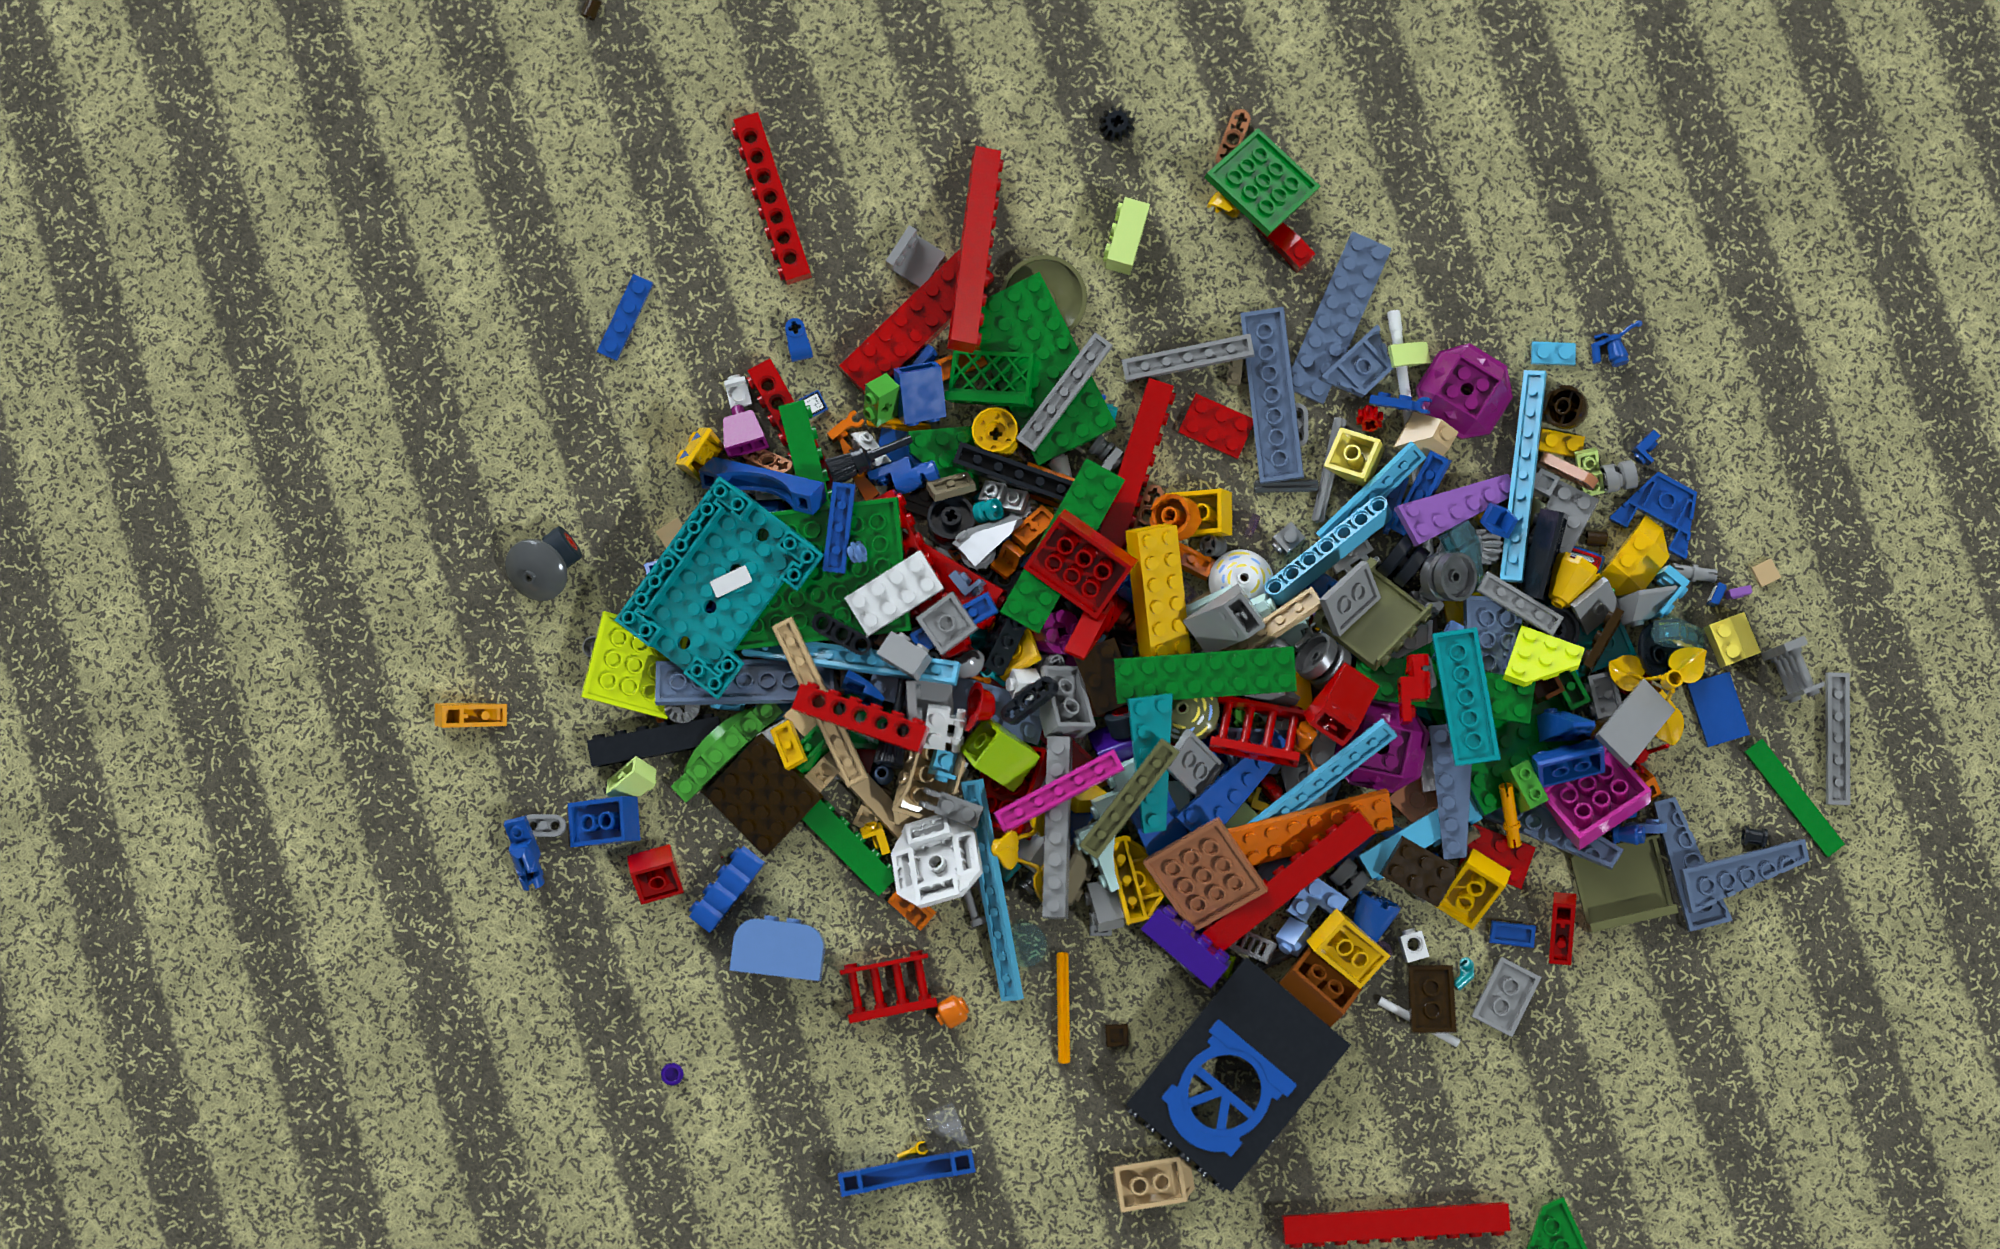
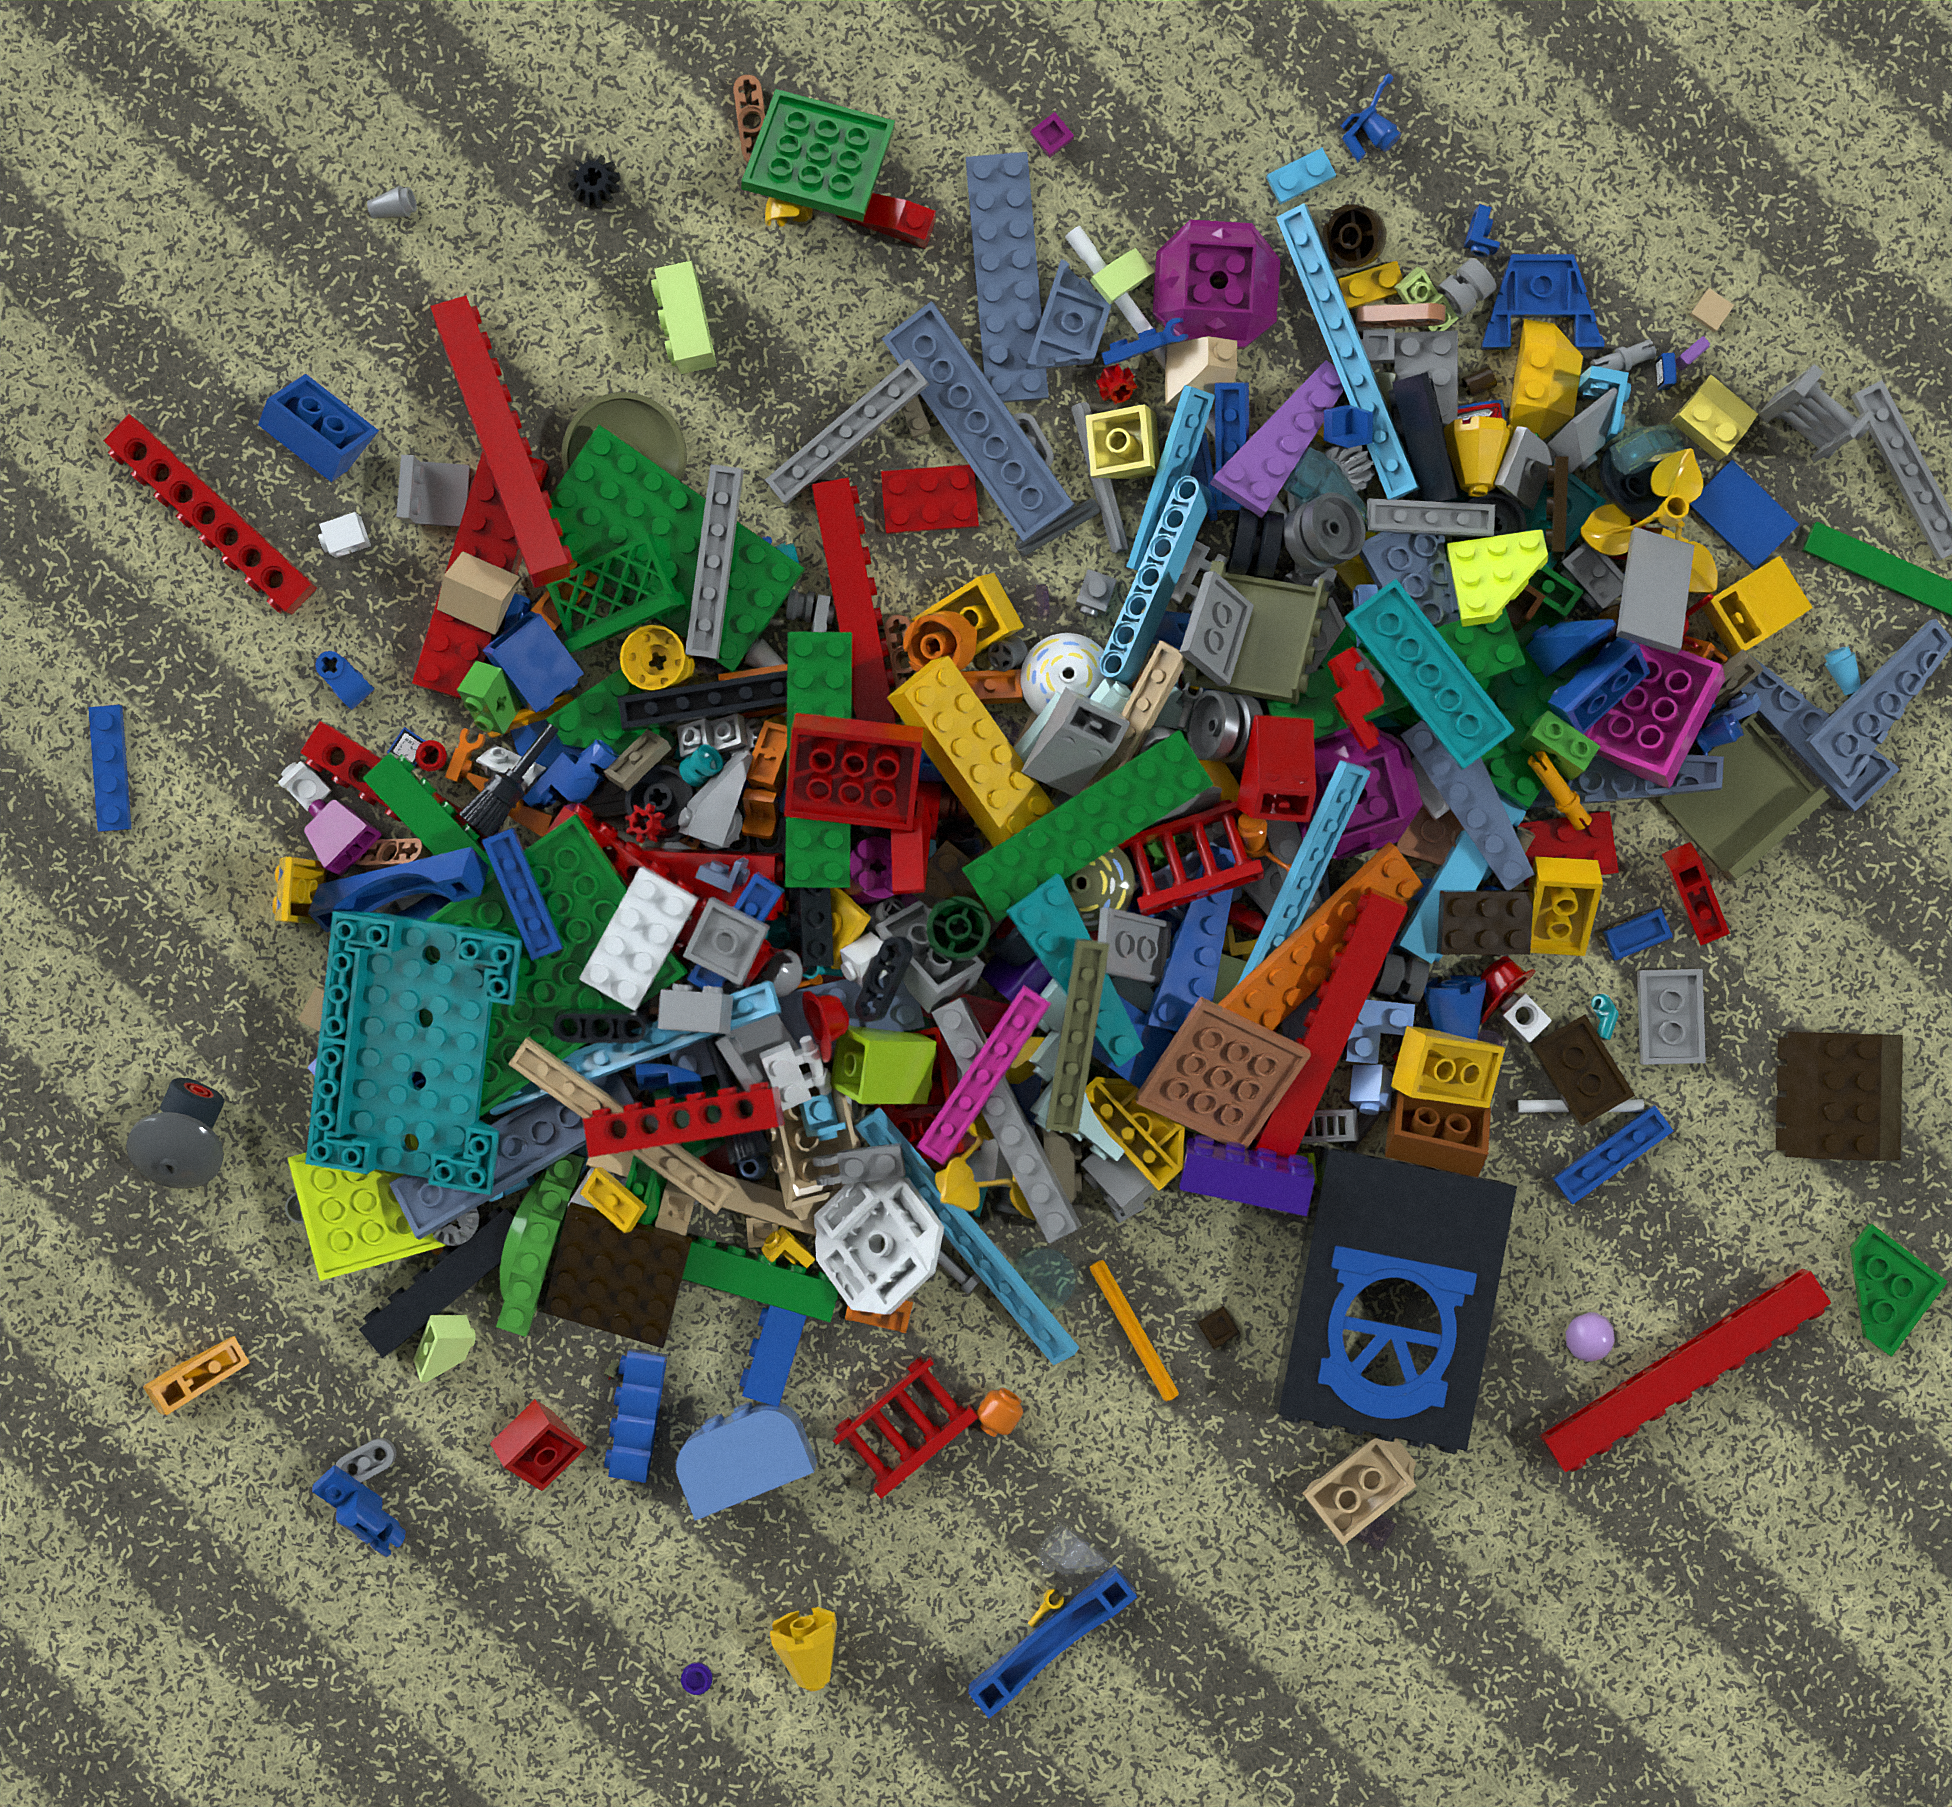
camera: 30 degrees left, 5 degrees up
(604, 821) = (438, 1415): blue slope -> none
(731, 581) = (424, 1035): white sticker -> none
(752, 1091) = (806, 1646): none -> yellow cone
(825, 410) = (424, 753): none -> red cone
(831, 897) = (772, 1355): none -> blue brick
(846, 254) = (343, 535): none -> white brick
(857, 552) = (563, 913): medium blue plate -> none
(866, 180) = (316, 426): none -> blue slope
(909, 332) = (477, 592): none -> tan slope
(940, 530) = (636, 821): none -> red gear
(987, 72) = (394, 203): none -> light grey cone
(1091, 694) = (958, 929): none -> dark green cylinder
(1146, 1217) = (1377, 1532): none -> clear purple tile
(1347, 1170) = (1590, 1337): none -> lavender hair
(1410, 916) = (1501, 980): none -> red piece
(1412, 246) = (1052, 135): none -> magenta plate
(1422, 1063) = (1612, 1154): none -> blue plate
(1587, 1105) = (1840, 1096): none -> dark brown slope
(1660, 804) = (1738, 673): none -> dark tan plate
(1696, 770) = (1756, 606): none -> yellow slope
(1730, 839) = (1844, 669): none -> medium azure cone
(1754, 836) = (1871, 649): black bush -> none

